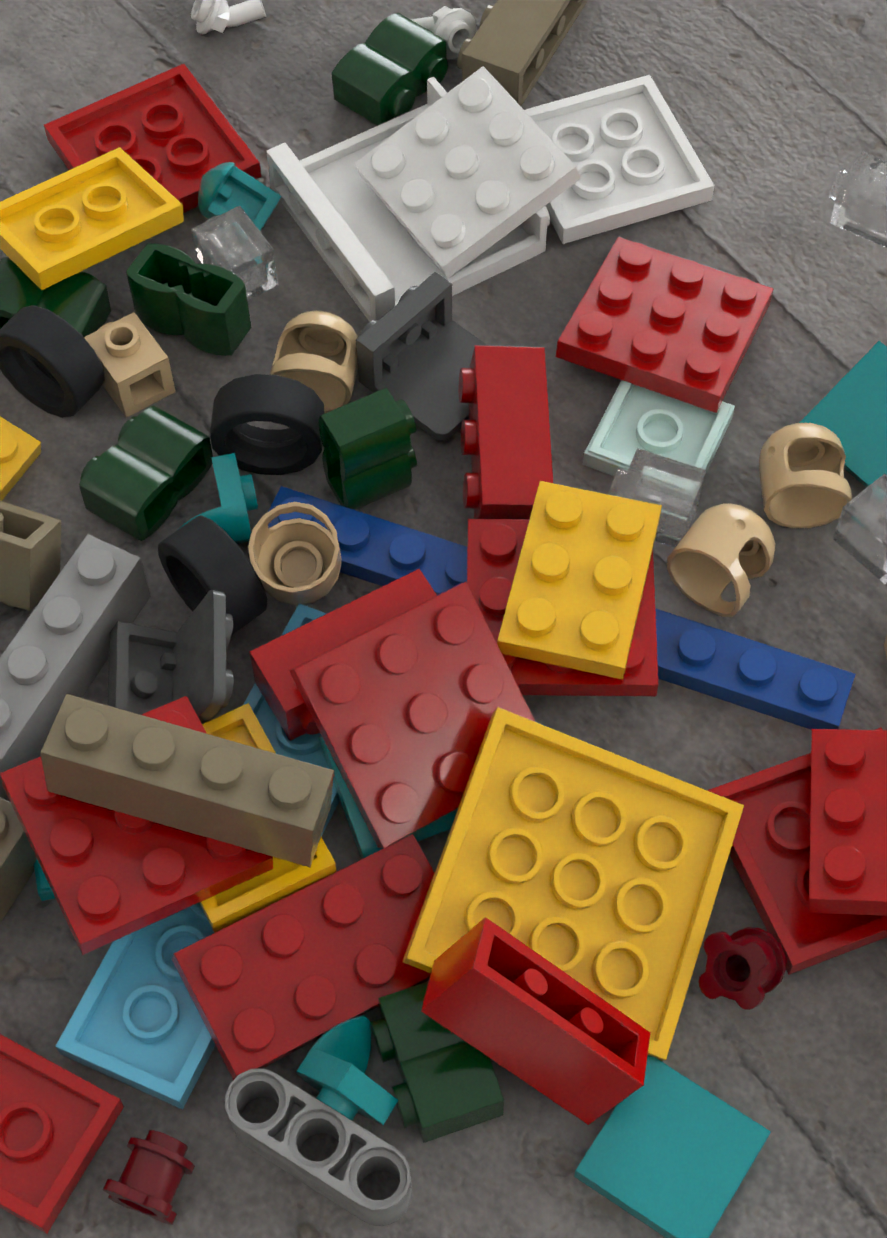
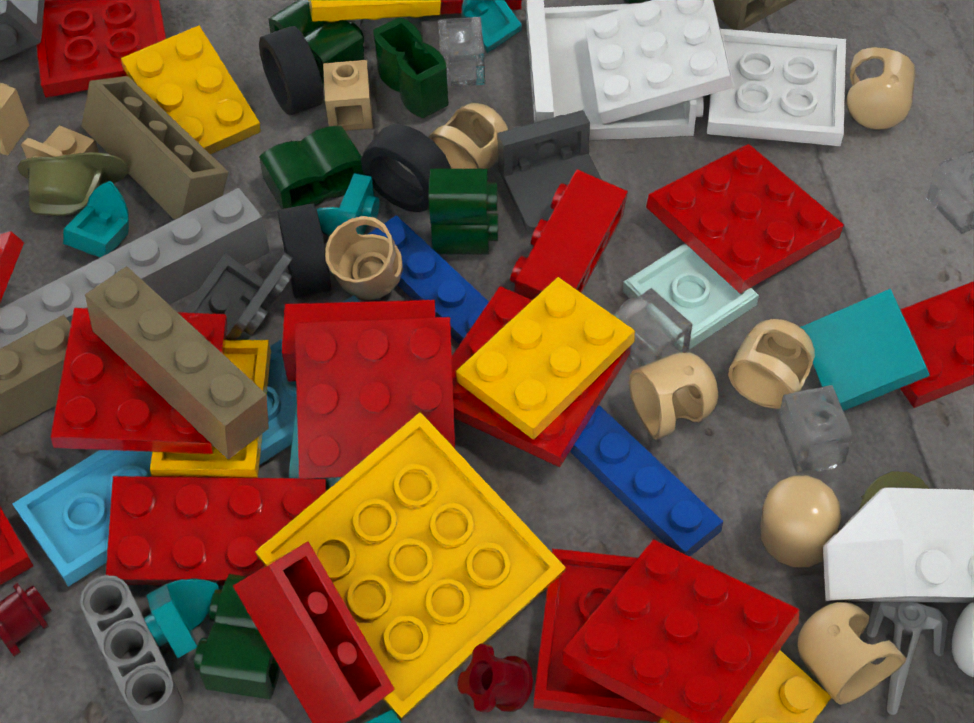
camera: 30 degrees right, 5 degrees down
(727, 134) = (883, 99): none -> tan helmet

